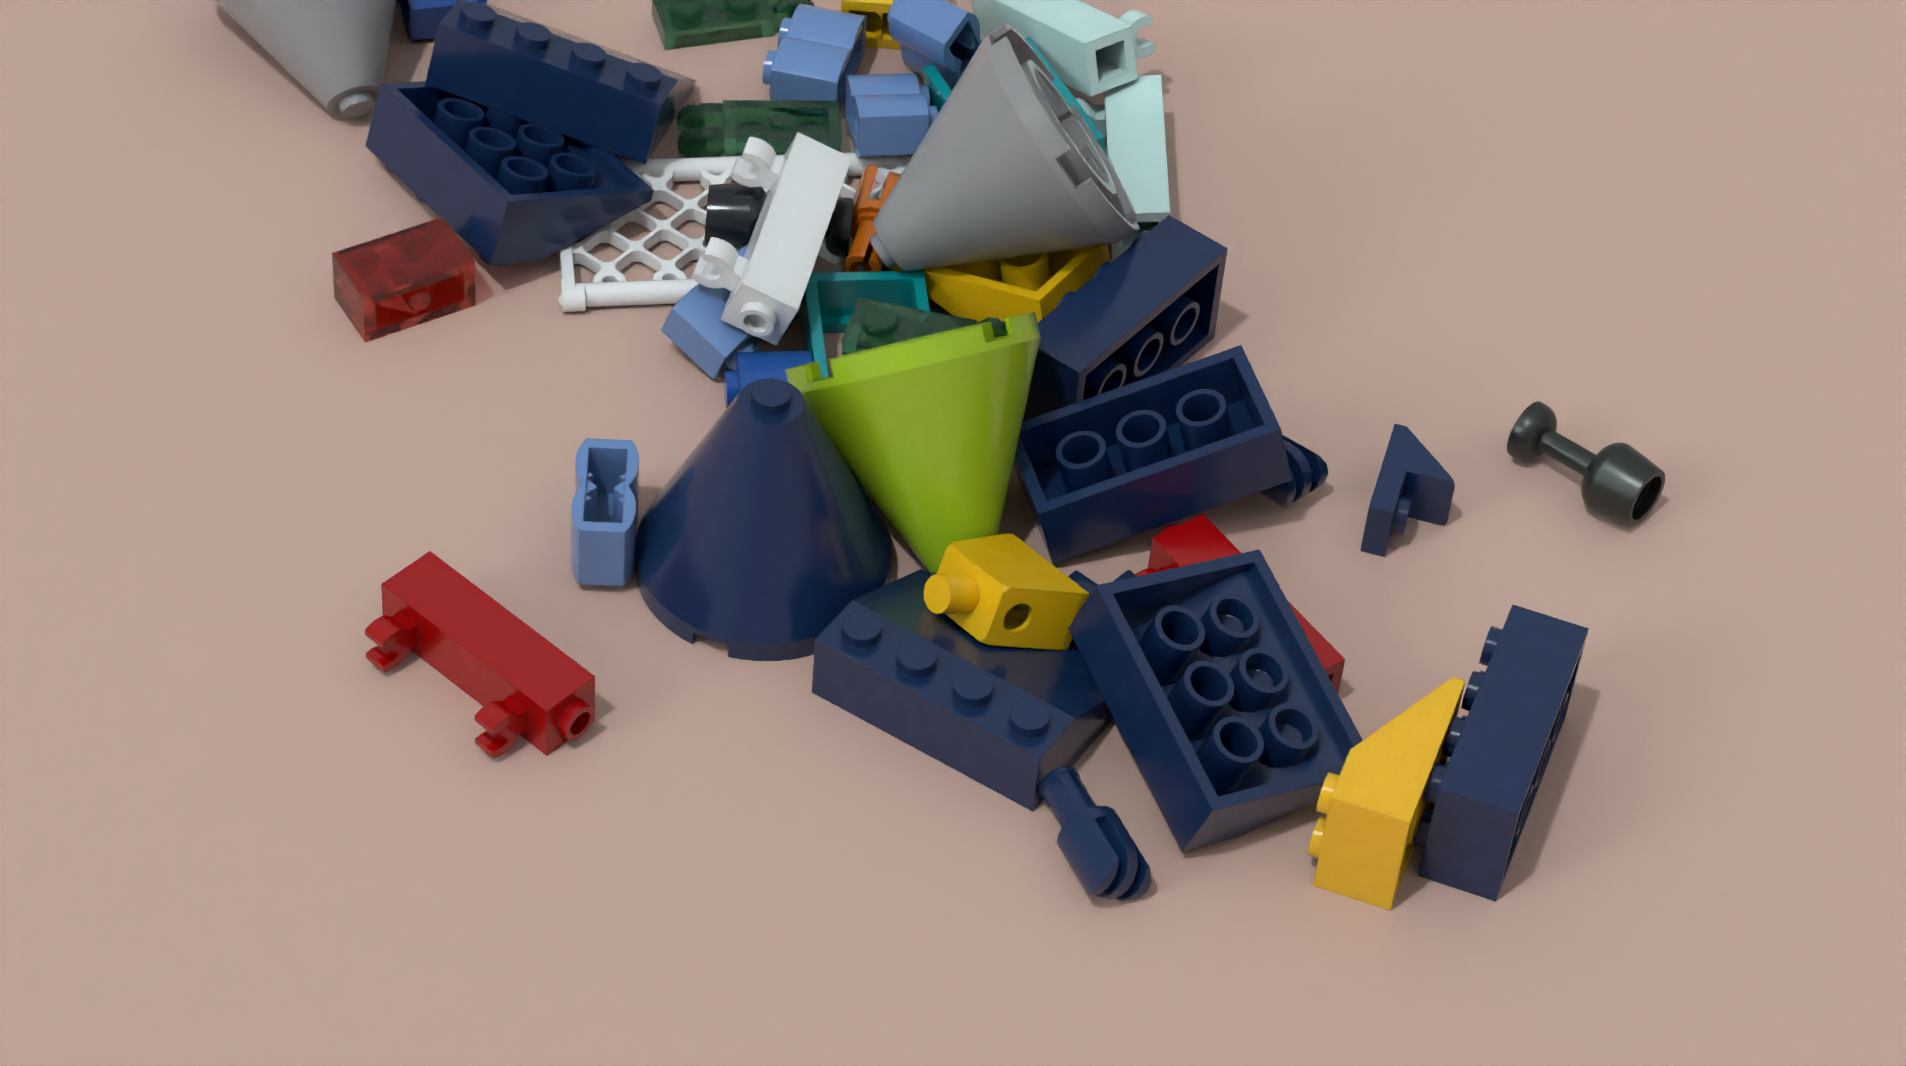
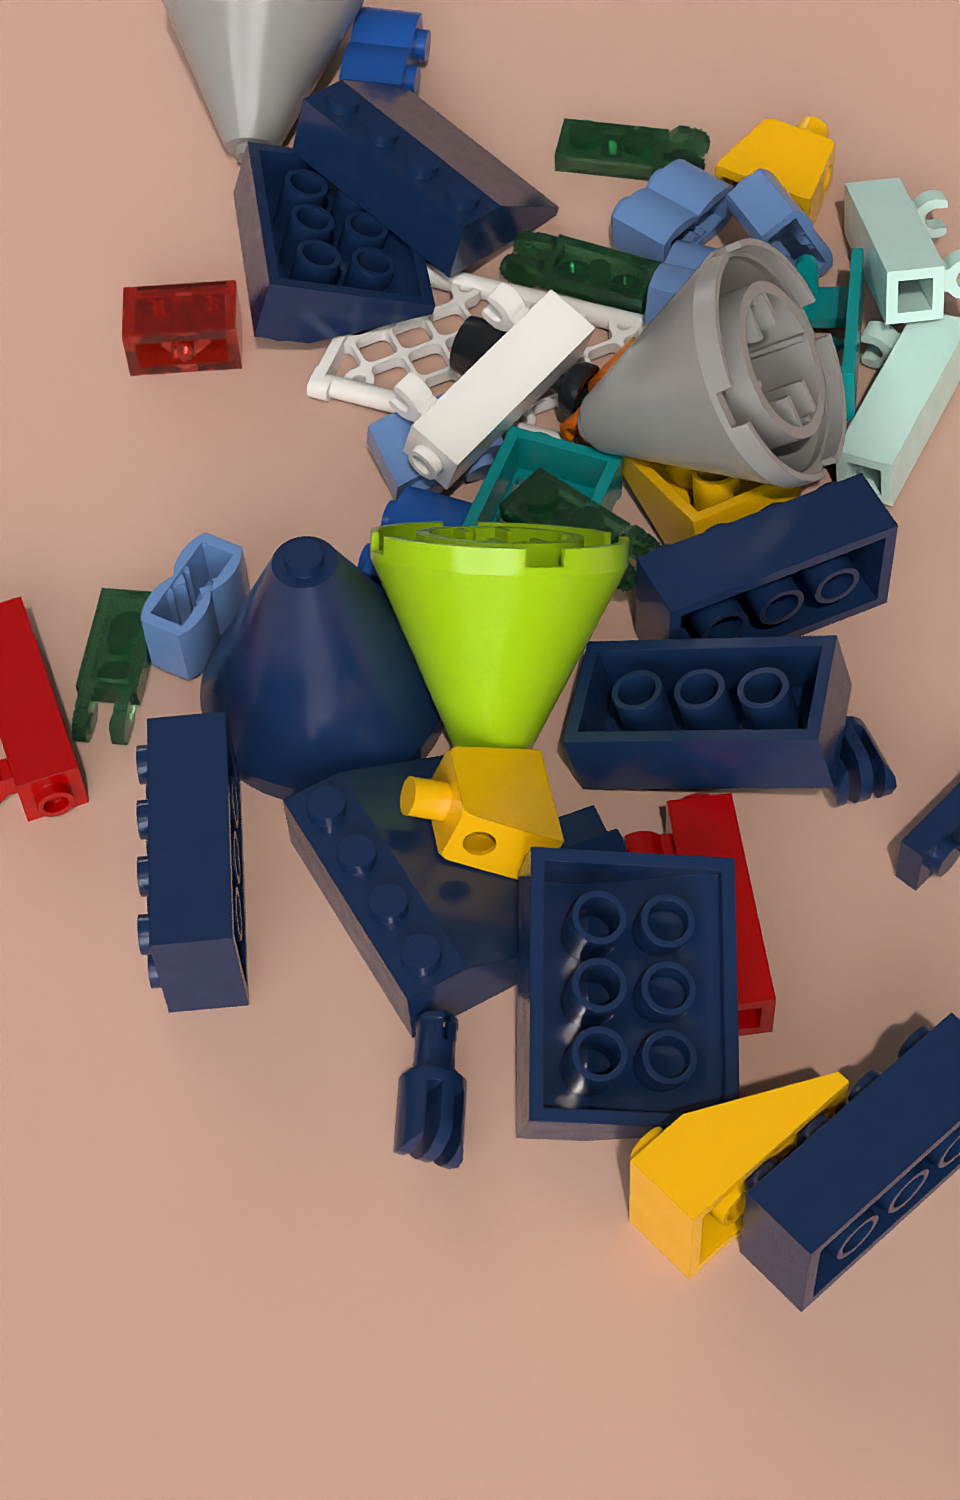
camera: 35 degrees right, 10 degrees up
(547, 581) = (113, 665): none -> clear green hinge
(765, 718) = (192, 863): none -> dark blue brick

